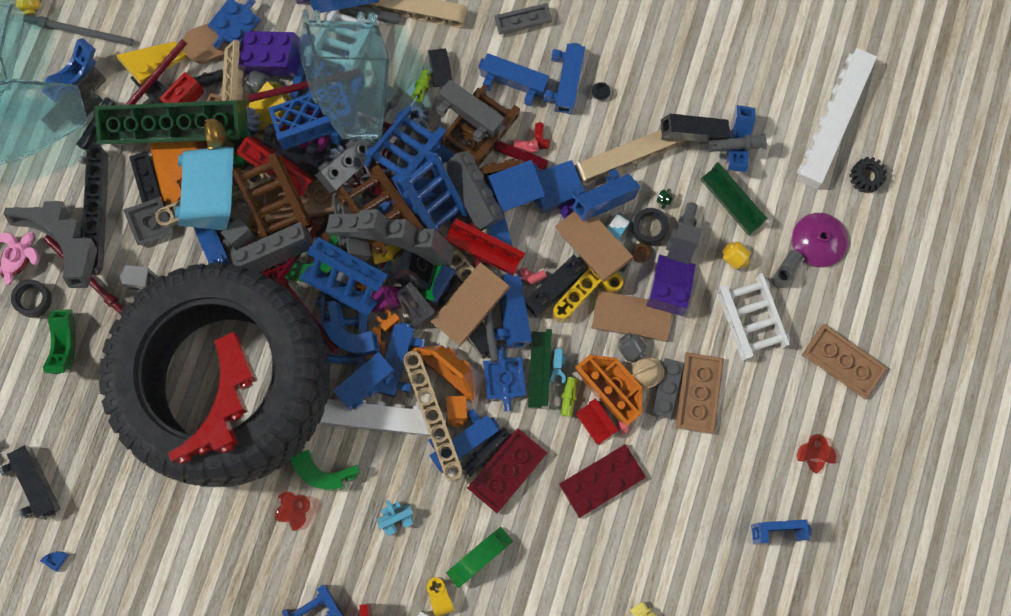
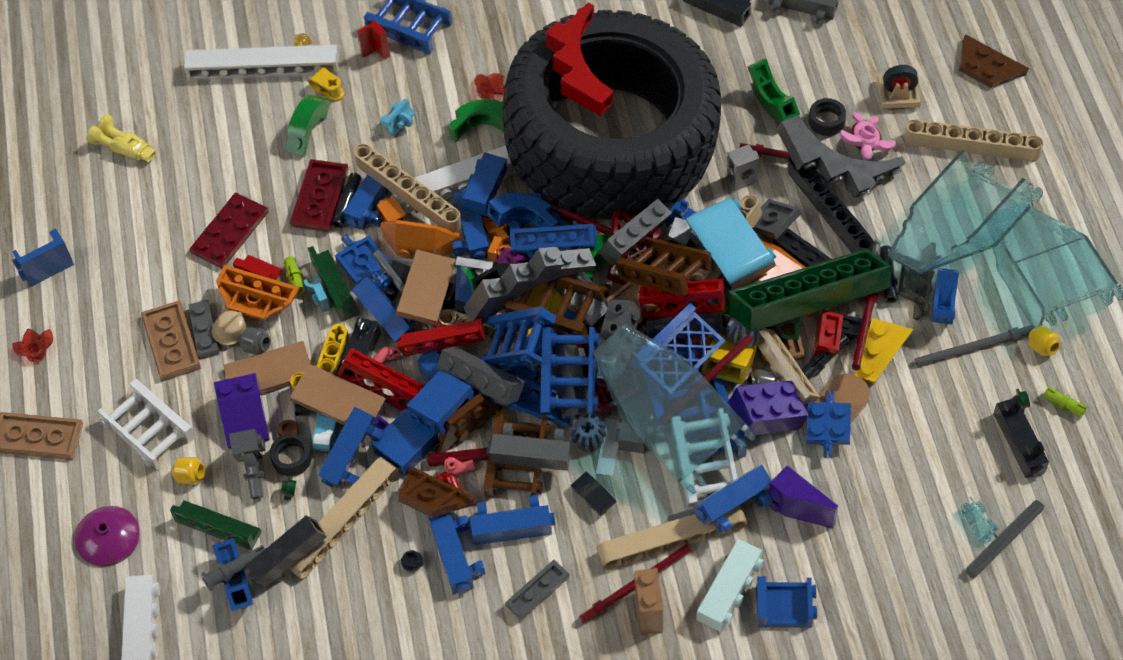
camera: 160 degrees right, 20 degrees down
(214, 134) = (751, 277): pearl gold hair -> none
(421, 86) = (598, 461): lime pin -> none
(549, 240) = (382, 378): none -> red fence
(562, 126) = (432, 495): none -> reddish brown wing
(788, 268) = (128, 486): dark grey piece -> none
(875, 167) = (70, 614): black tyre -> none

